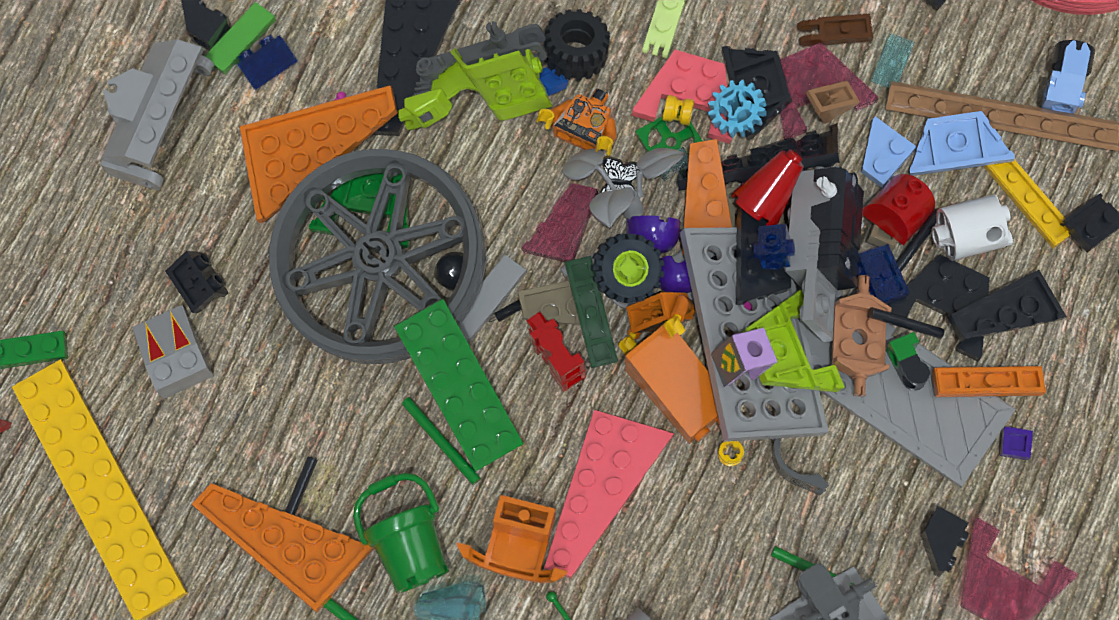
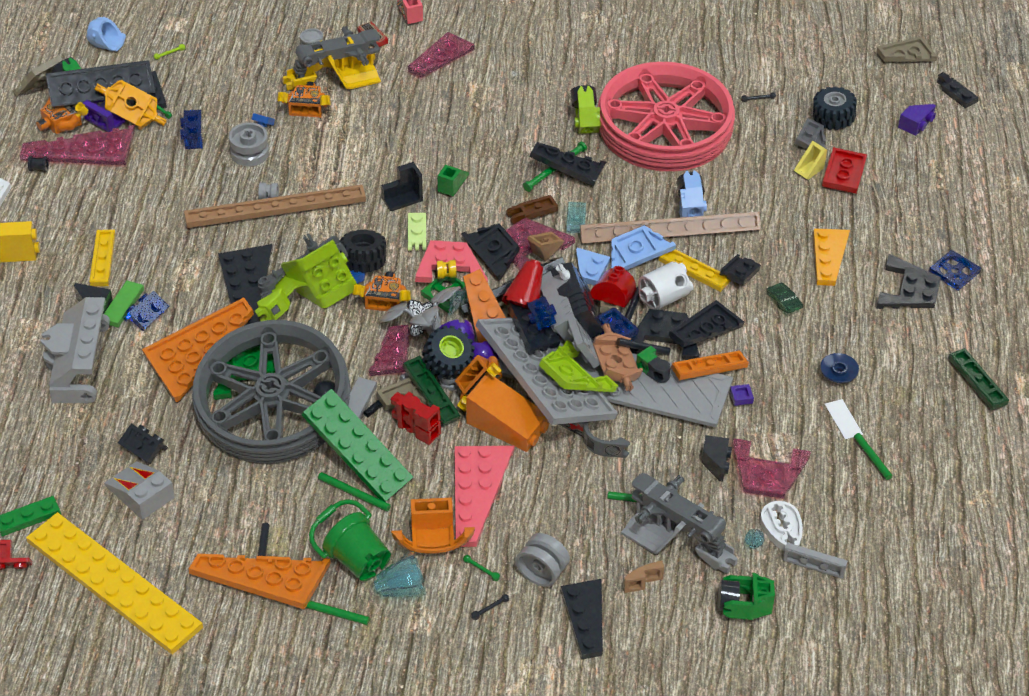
camera: 25 degrees left, 25 degrees down
(725, 459) = (555, 452): yellow bush -> none
(744, 116) = (485, 257): medium azure gear -> none
(744, 353) = (546, 369): piece -> none

